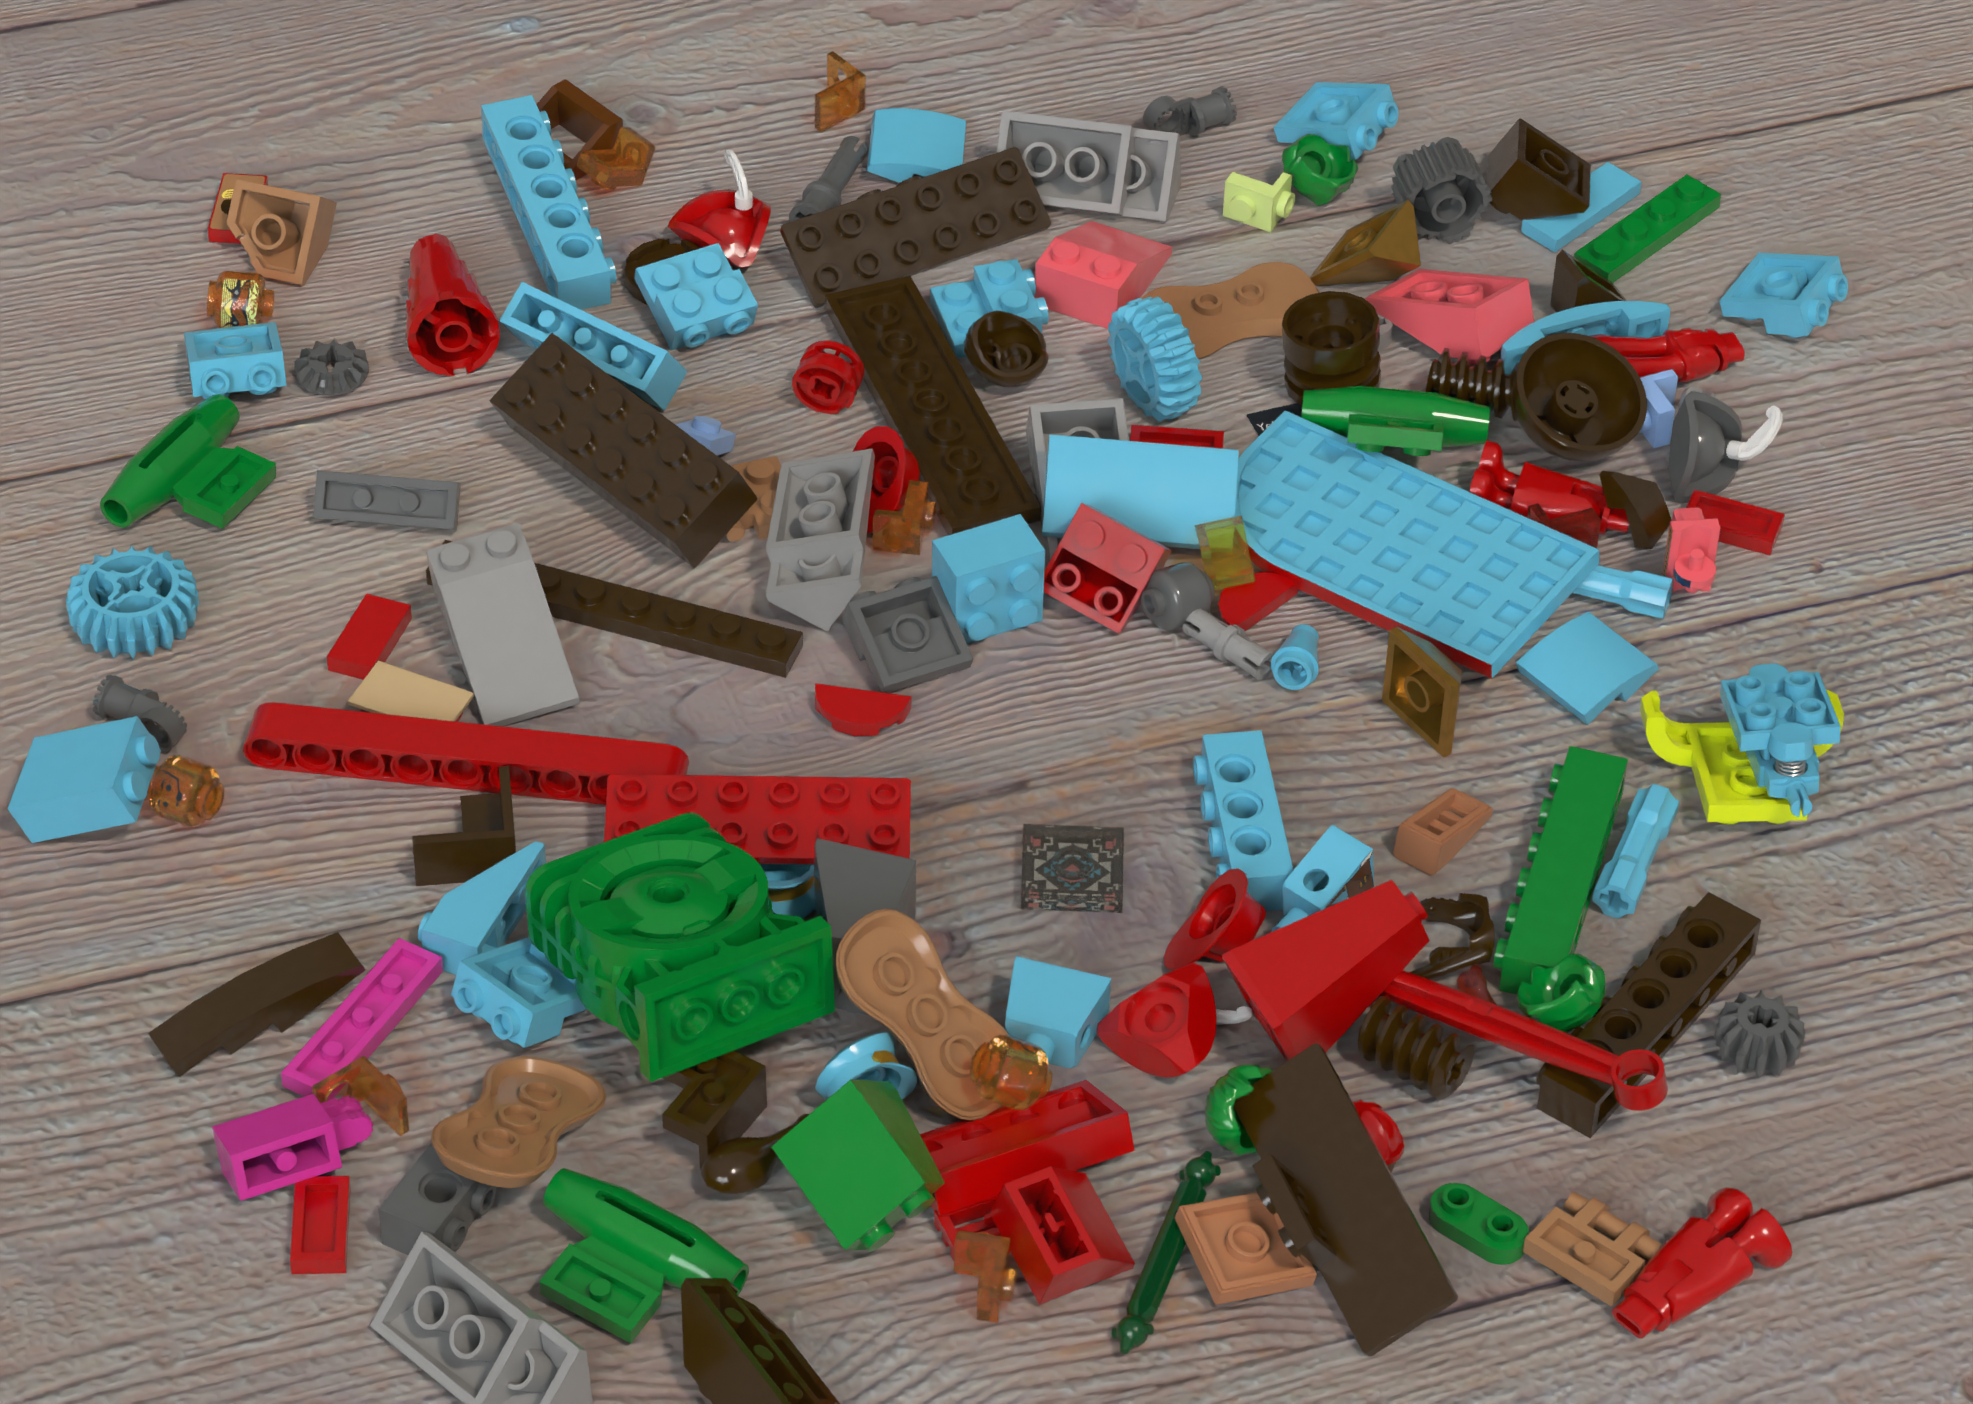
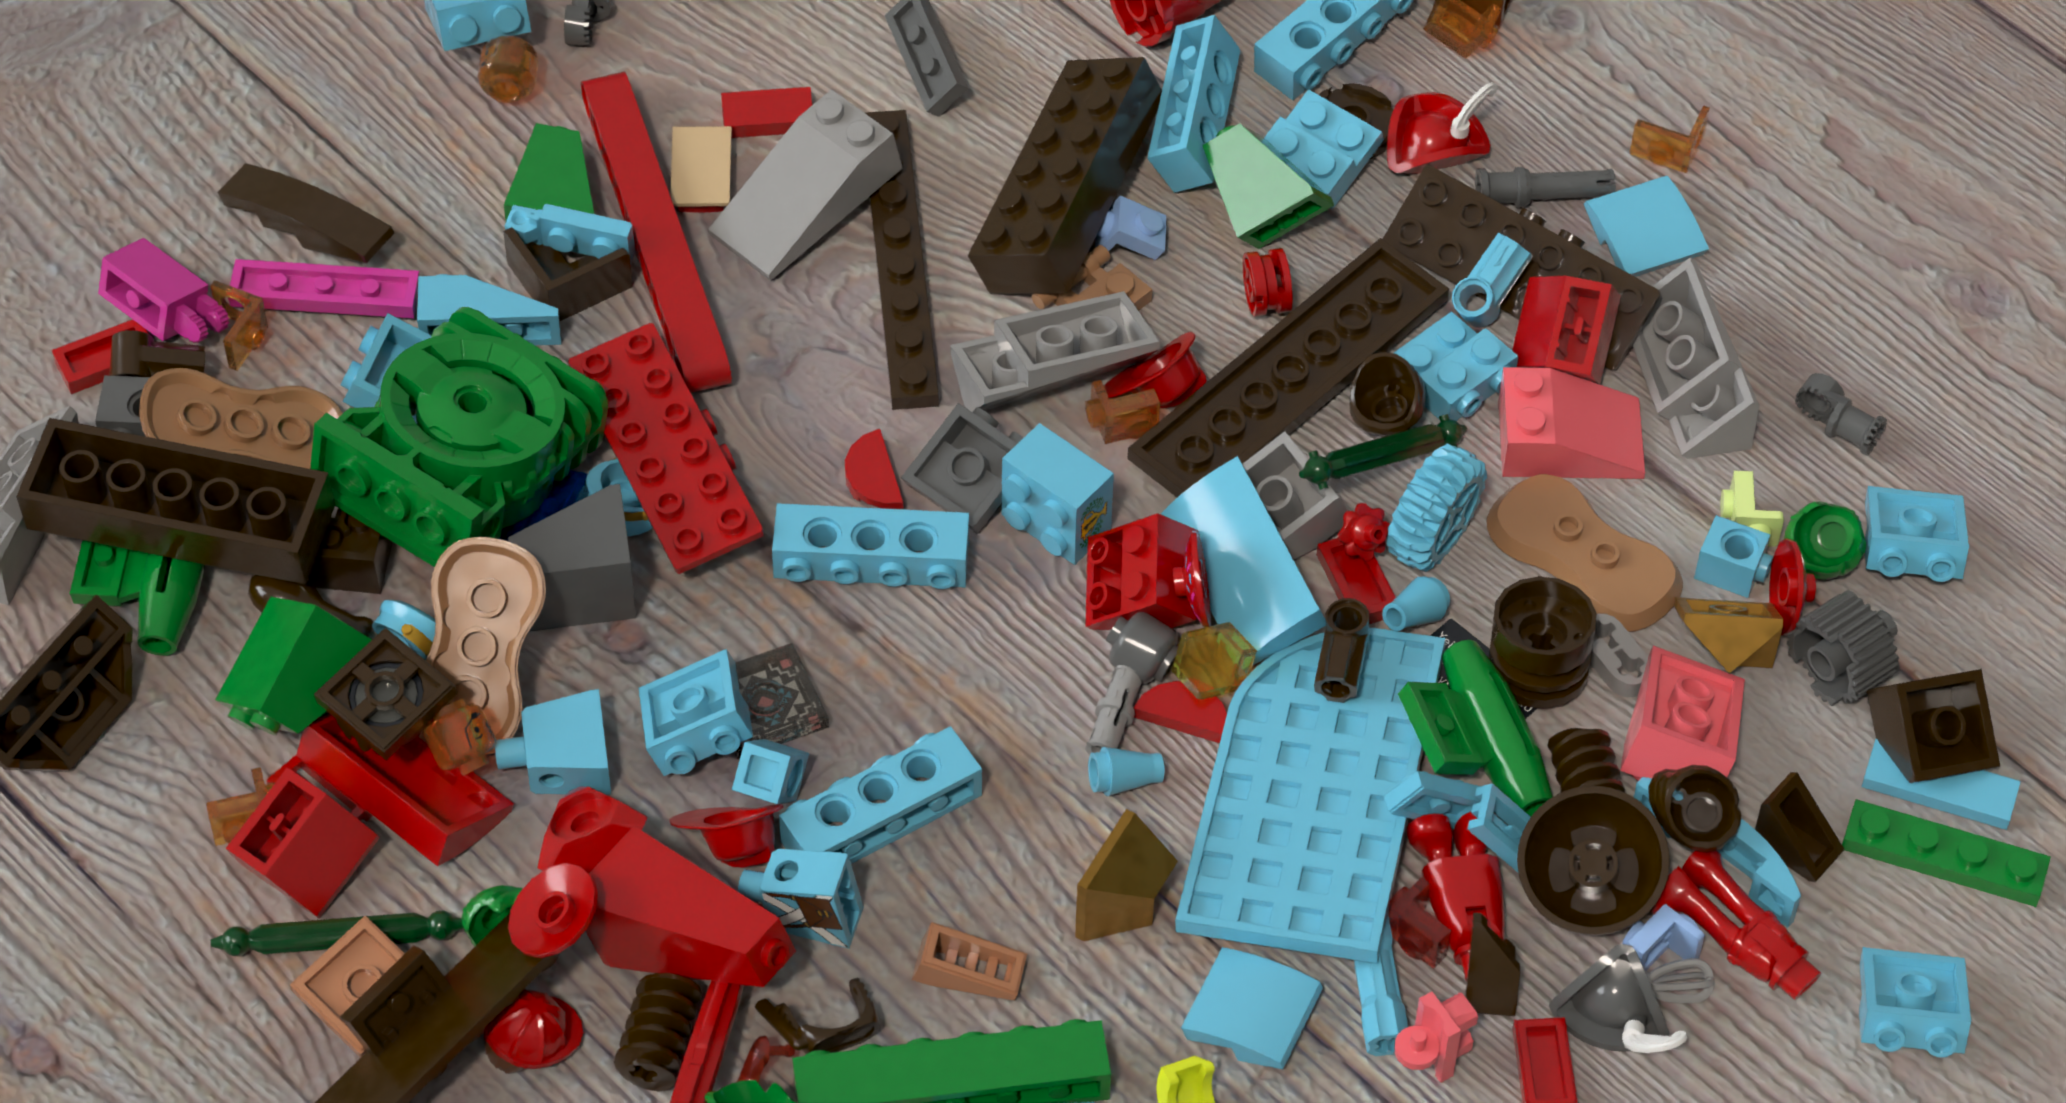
camera: 65 degrees right, 10 degrees up
(365, 808) = (551, 172): none -> green slope
(373, 1176) = (141, 356): none -> dark brown piece
(444, 800) = (571, 230): none -> medium azure hinge
(617, 1172) = (176, 500): none -> dark brown brick
(725, 332) = (1261, 186): none -> slope
(929, 240) = (1493, 276): none -> medium azure piece
(955, 727) = (852, 530): none -> medium azure brick
(956, 1091) = (389, 695): none -> dark brown piece
(1013, 213) = (1566, 325): none -> red slope
(1076, 366) = (1381, 451): none -> dark green wheel
(1077, 904) = (694, 714): none -> medium azure plate
(1148, 412) = (1364, 531): none -> red plant
(1158, 510) = (1192, 579): none -> red dish
(1175, 873) = (770, 771): none -> medium azure brick
(1235, 415) = (1418, 604): none -> medium azure cone
(1269, 462) = (1343, 650): none -> dark brown piece
(1282, 1013) = (553, 910): none -> red dish
(1297, 225) = (1718, 556): none -> medium azure brick
(1345, 202) = (1790, 584): none -> red dish
(1462, 461) = (1428, 794): none -> medium azure hinge
(1510, 441) = (1491, 829): none -> medium azure tile
(1563, 309) = (1707, 813): none -> dark brown hair

